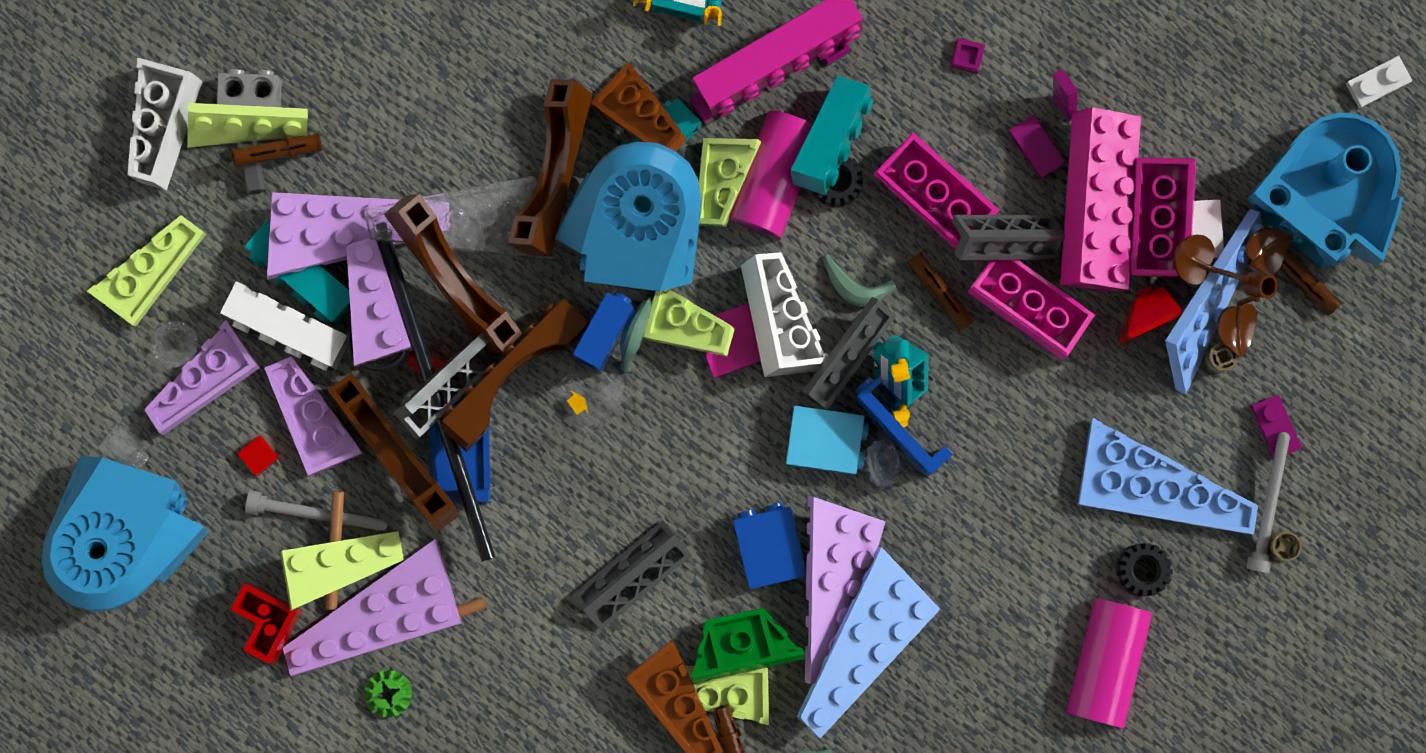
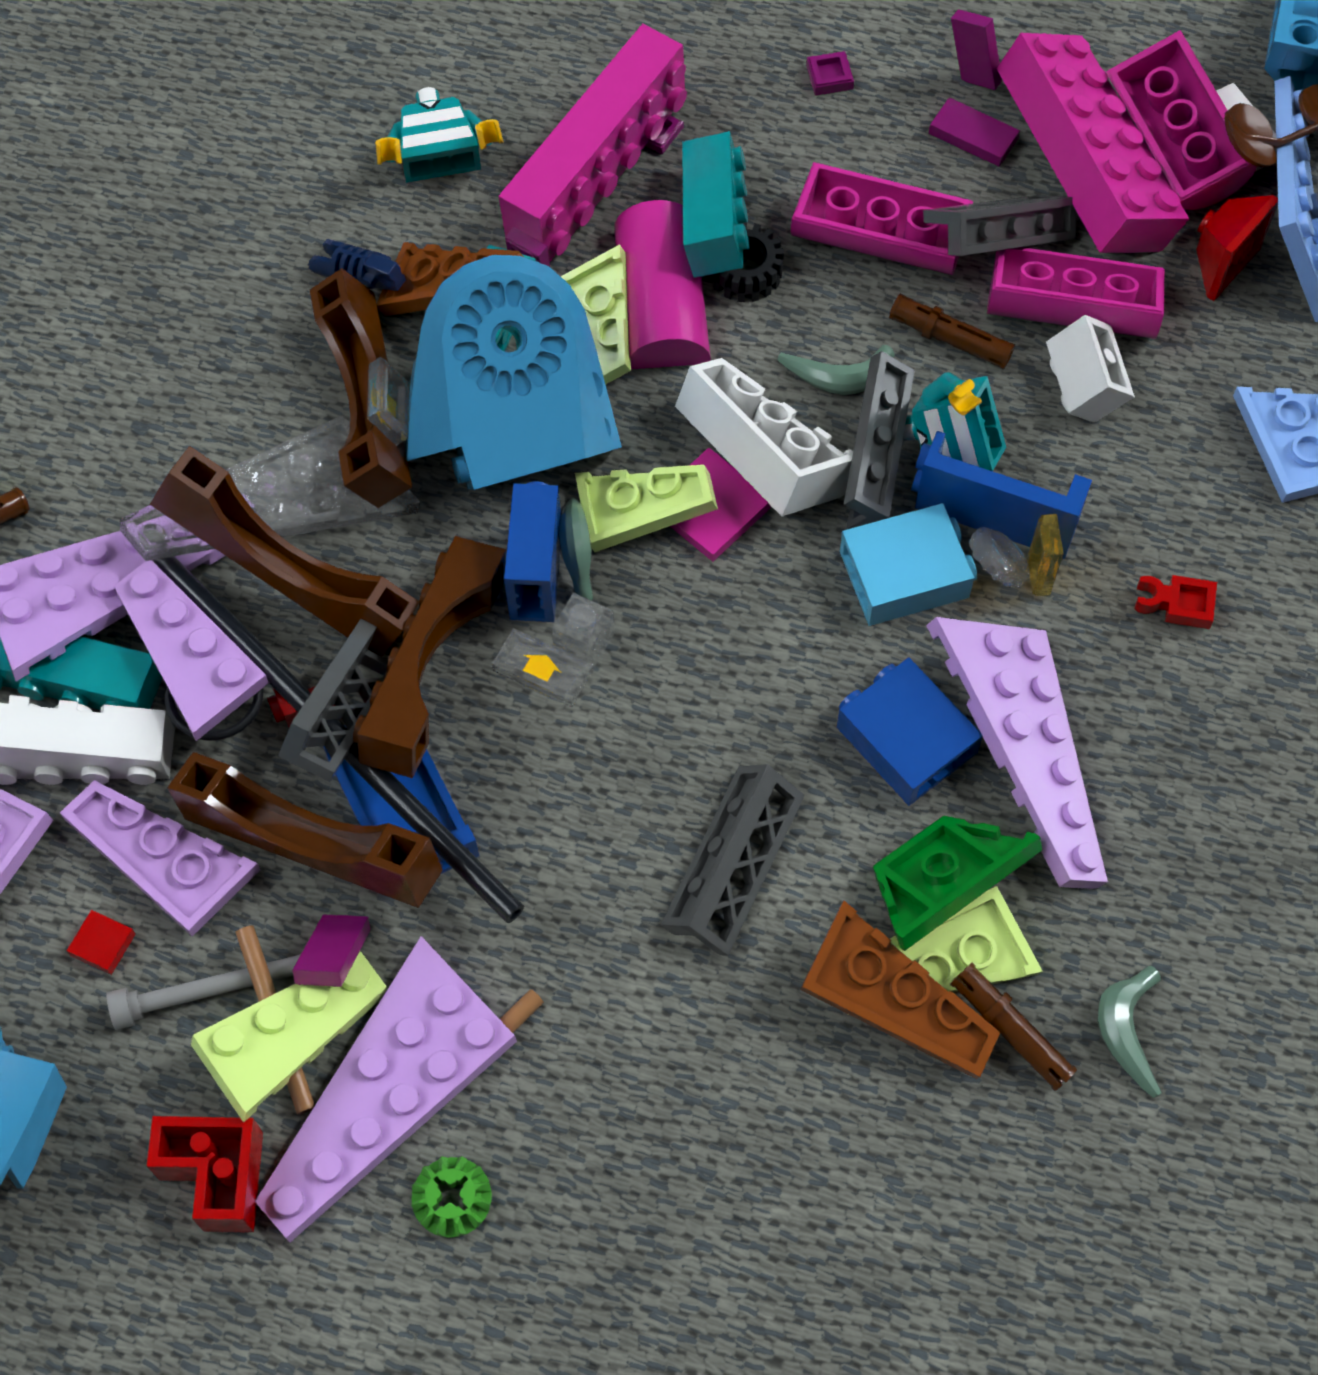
camera: 25 degrees left, 20 degrees down
(381, 527) = (331, 950): none -> magenta tile
(560, 193) = (388, 401): none -> clear tile
(590, 70) = (367, 266): none -> dark blue hinge
(873, 632) = (1116, 781): light blue wing -> none
(906, 479) = (1045, 555): none -> clear yellow tile
(978, 542) = (1185, 600): none -> red plate
(1006, 364) = (1089, 369): none -> white brick

